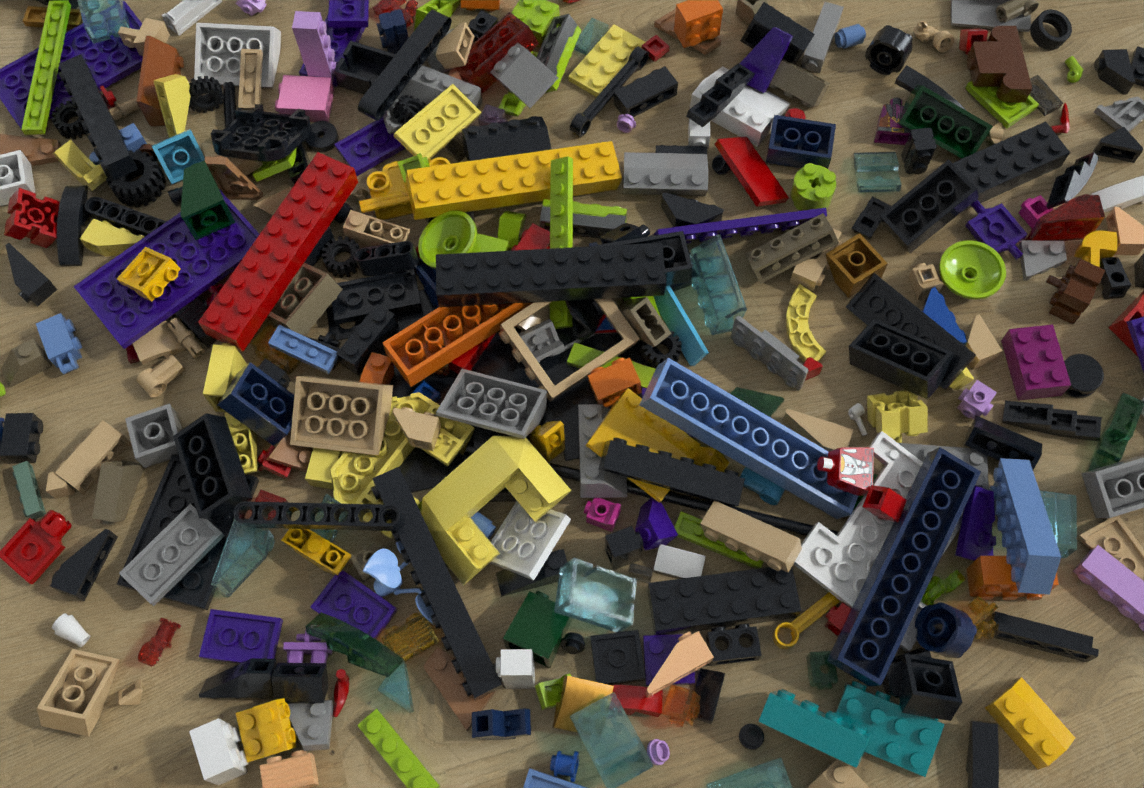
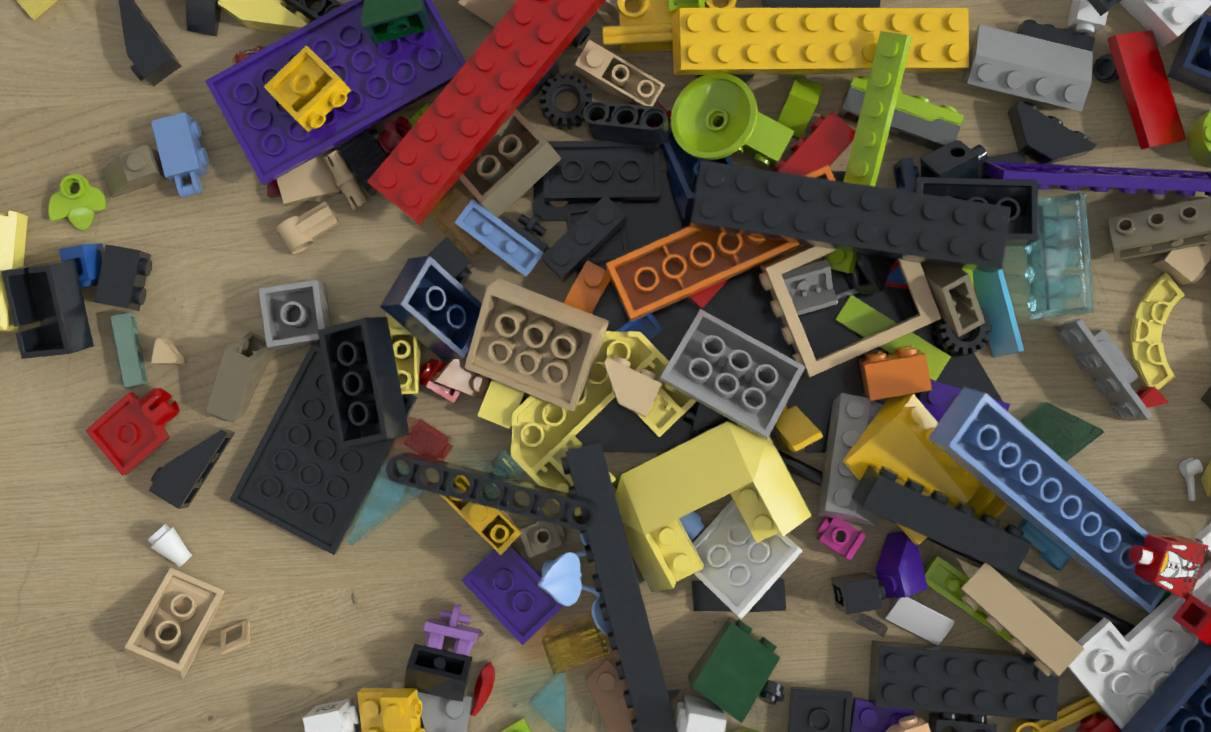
camera: 10 degrees right, 20 degrees up
(84, 464) = (211, 323): tan brick -> none
(153, 649) = (273, 584): clear red connector -> none
(171, 555) = (300, 482): light grey plate -> none
(222, 368) = (391, 250): light yellow brick -> none
(240, 637) = (373, 599): dark purple plate -> none
(244, 680) = (368, 654): black slope -> none
(357, 645) = (510, 645): clear green slope -> none
(595, 595) = (806, 649): clear light blue piece -> none
(821, 432) = (1141, 496): tan slope -> none

